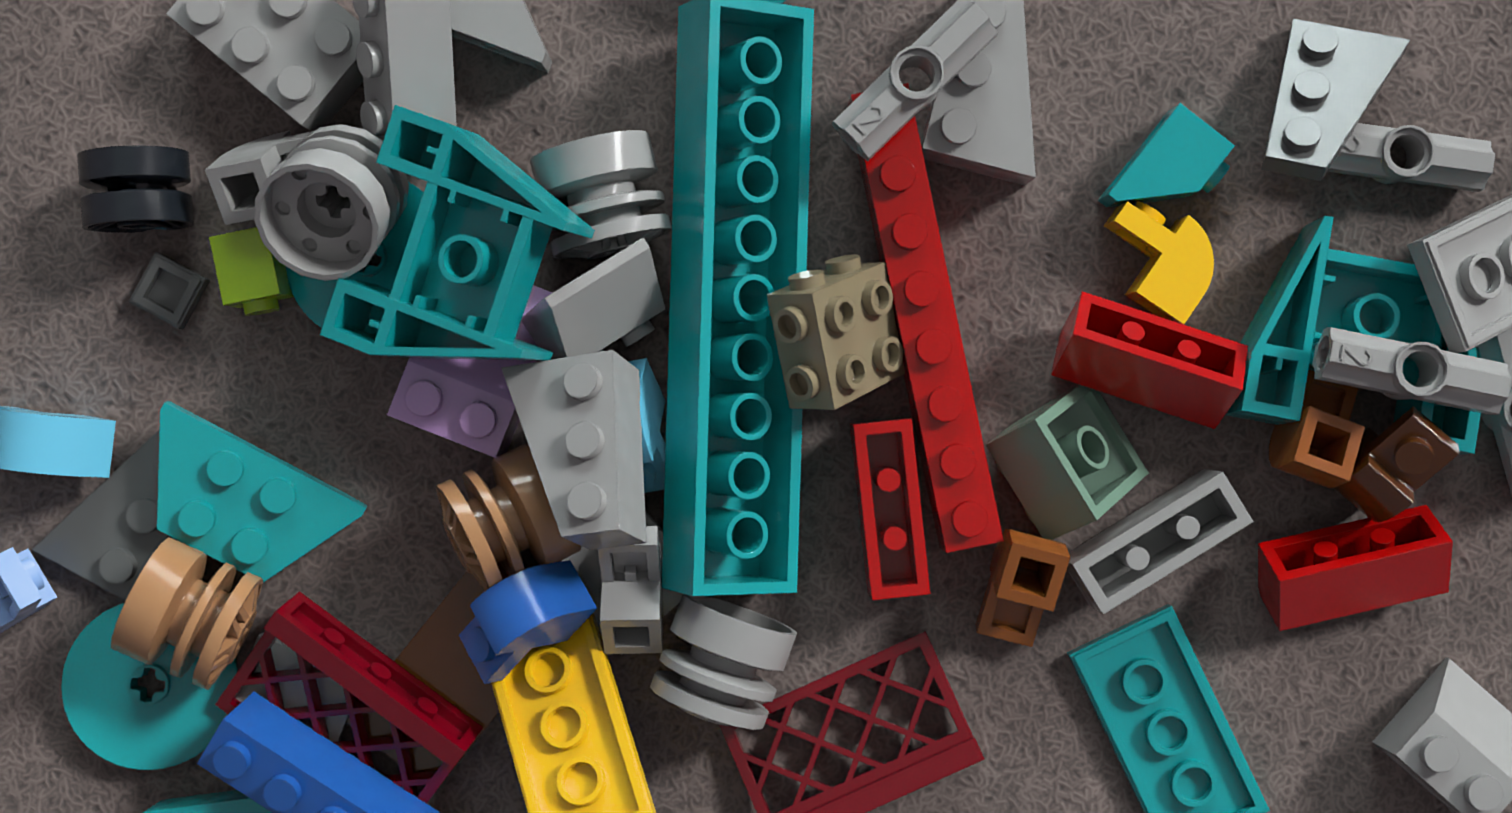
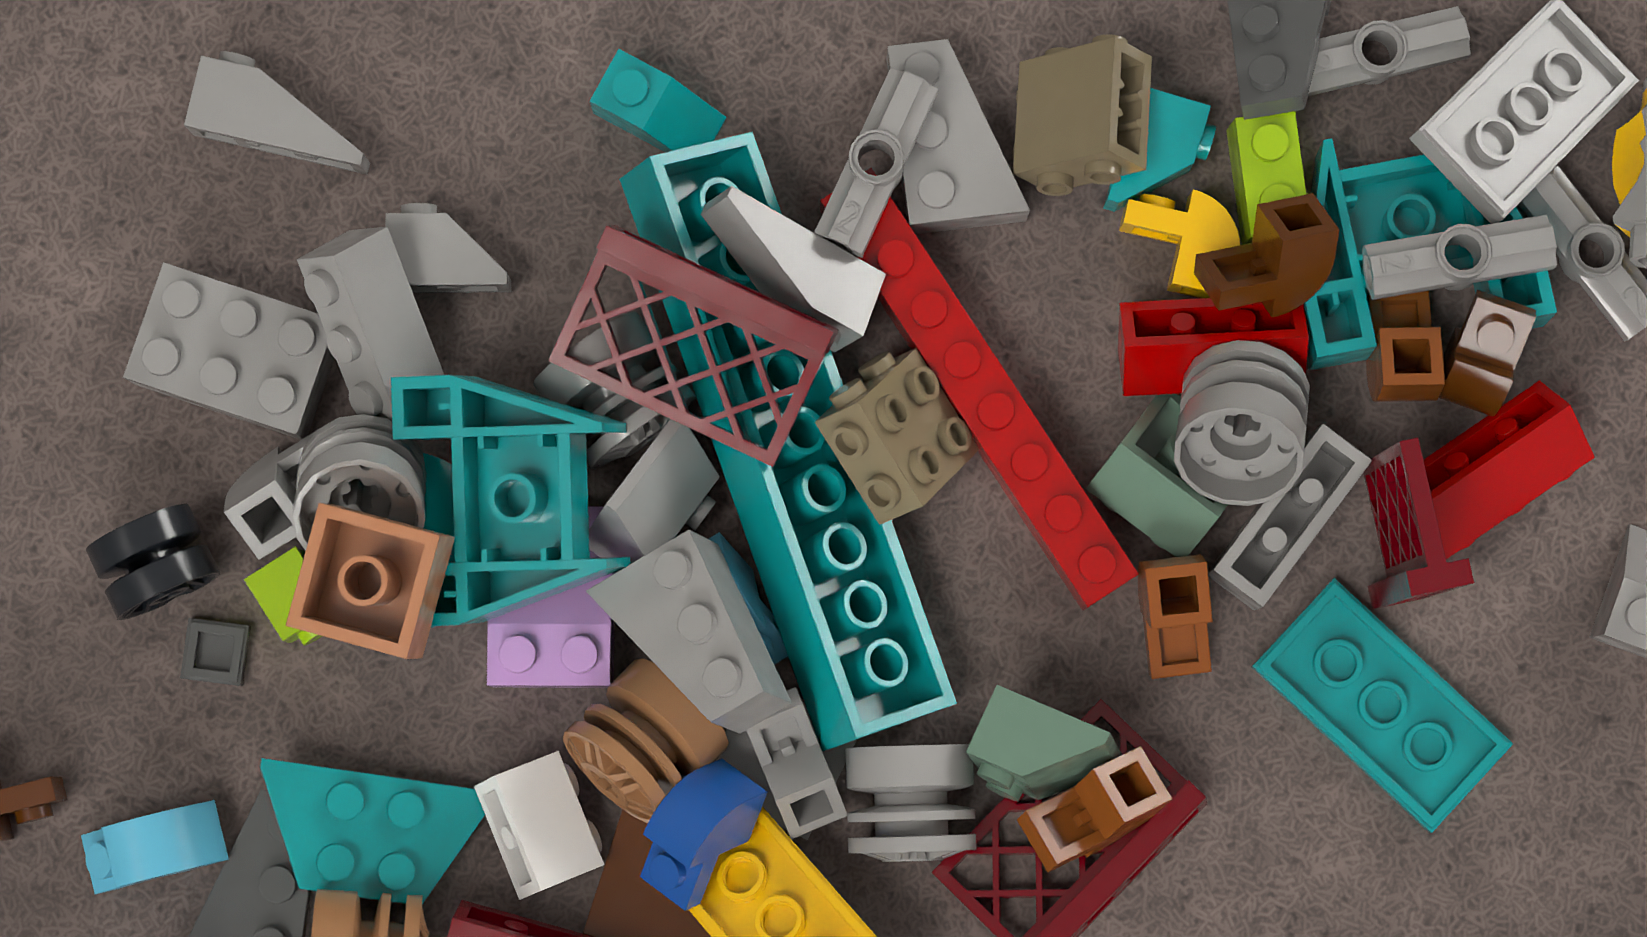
camera: 25 degrees left, 5 degrees down
(299, 285) = (370, 581): none -> nougat brick
(392, 554) = (540, 824): none -> white brick
(721, 146) = (713, 294): none -> dark red fence
(804, 151) = (796, 264): none -> slope
(850, 659) = (1035, 747): none -> sand green slope
(882, 736) = (1096, 811): none -> dark orange brick
(890, 508) = (1015, 585): red brick -> none
(1117, 109) = (1082, 115): none -> dark tan brick
(1152, 444) = (1242, 423): none -> light grey wheel
(1247, 314) = (1283, 264): none -> reddish brown brick
(1258, 231) = (1264, 164): none -> lime brick
(1268, 605) = (1408, 530): none -> dark red fence

